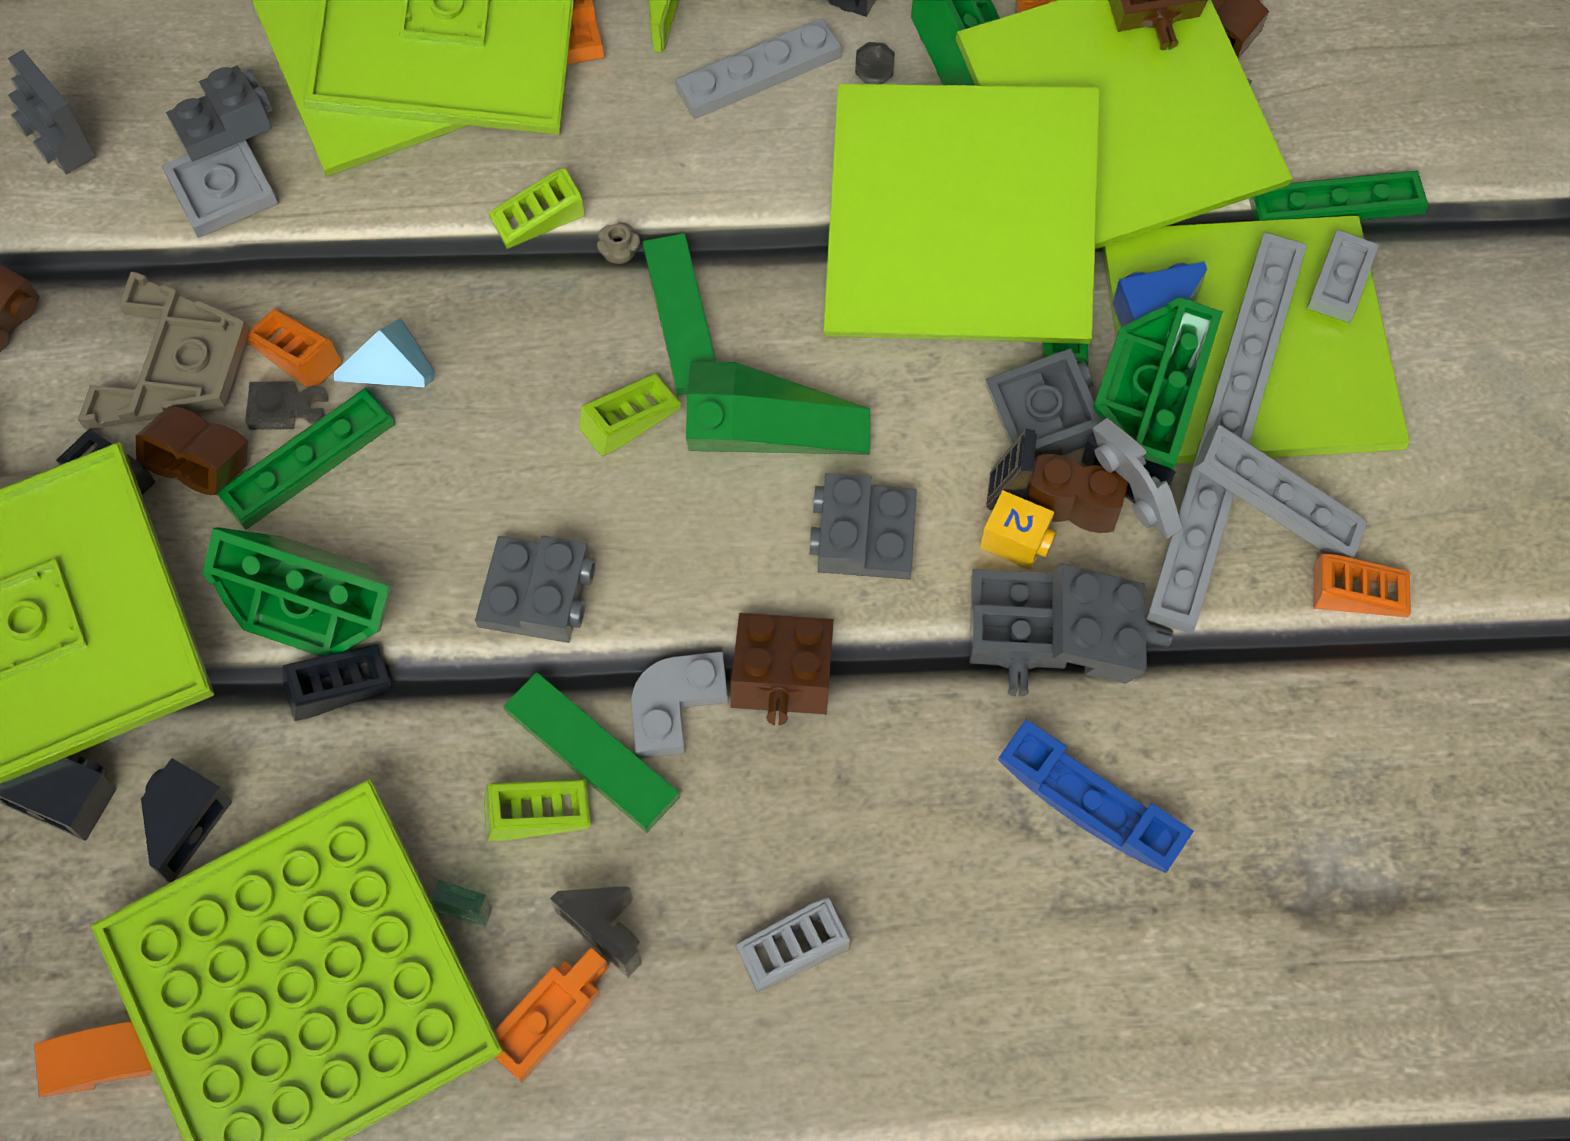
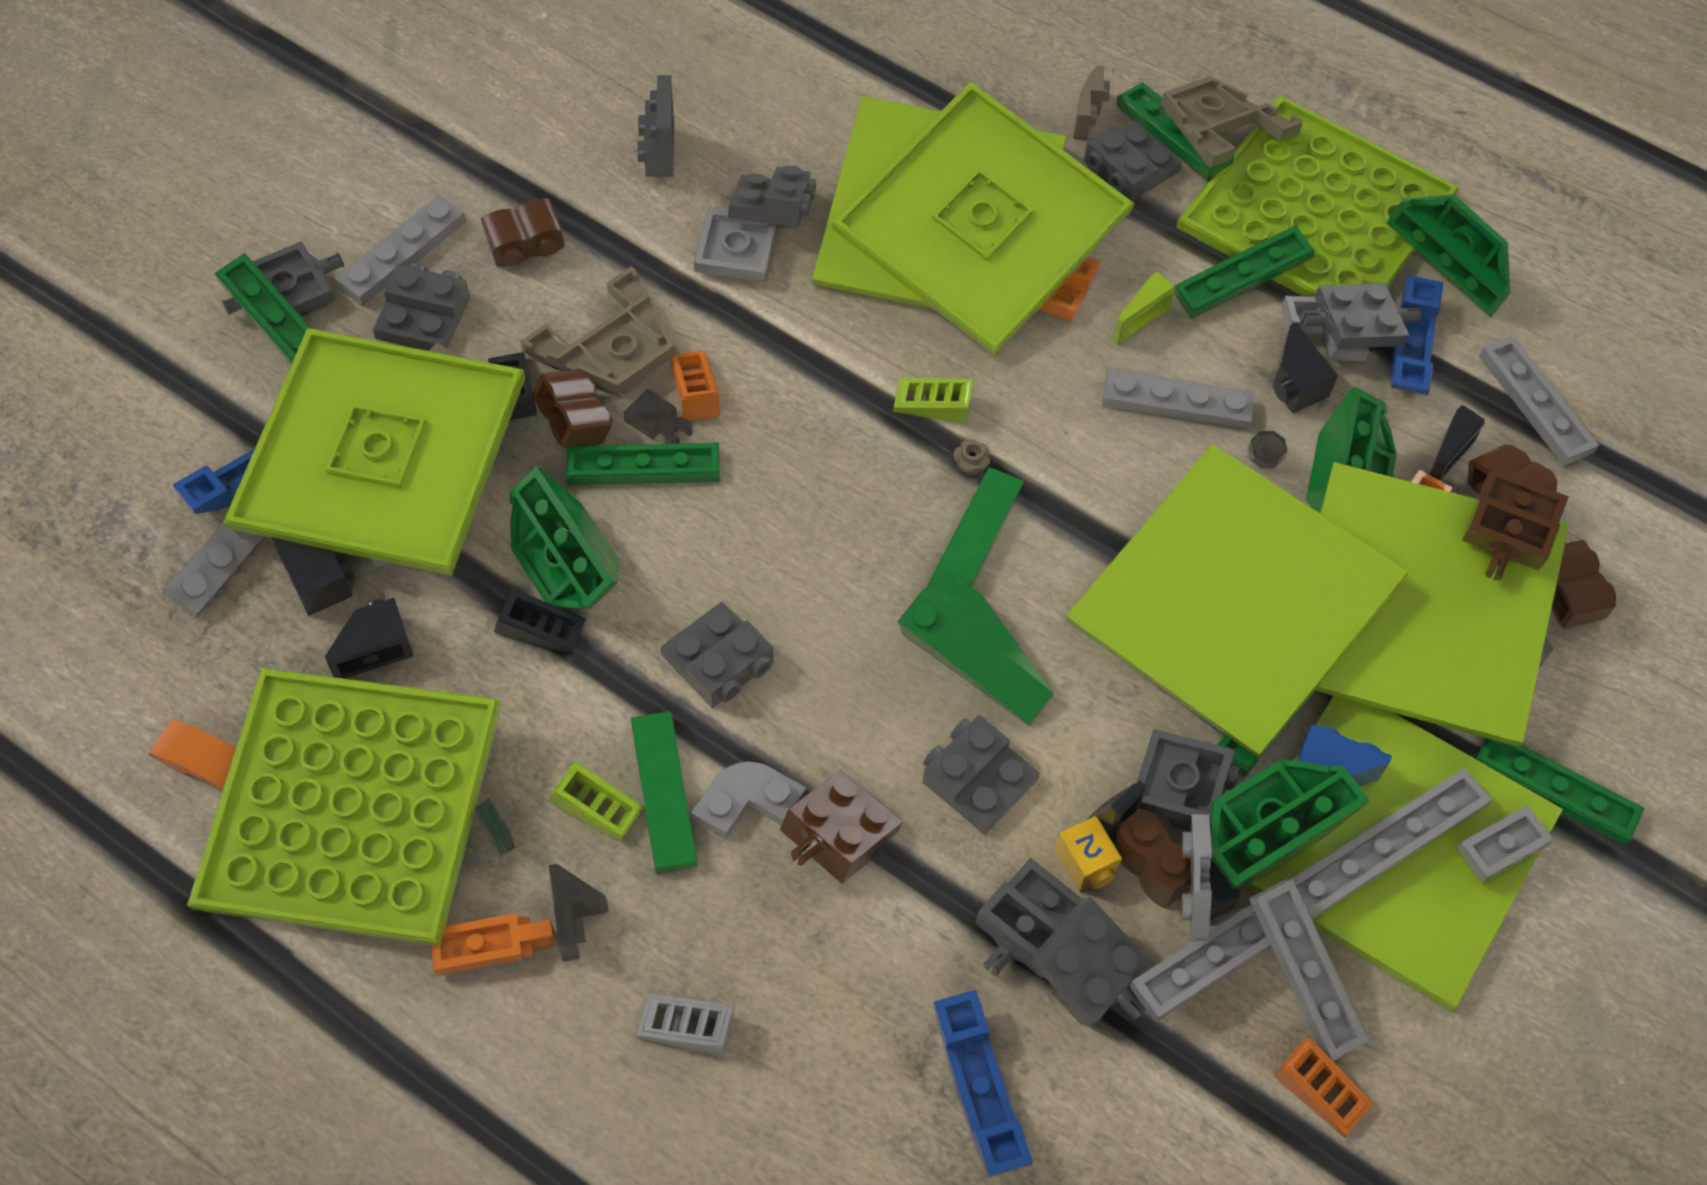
camera: 35 degrees right, 5 degrees down
(388, 359) = (749, 433): slope -> none
(609, 433) = (865, 589): lime slope -> none

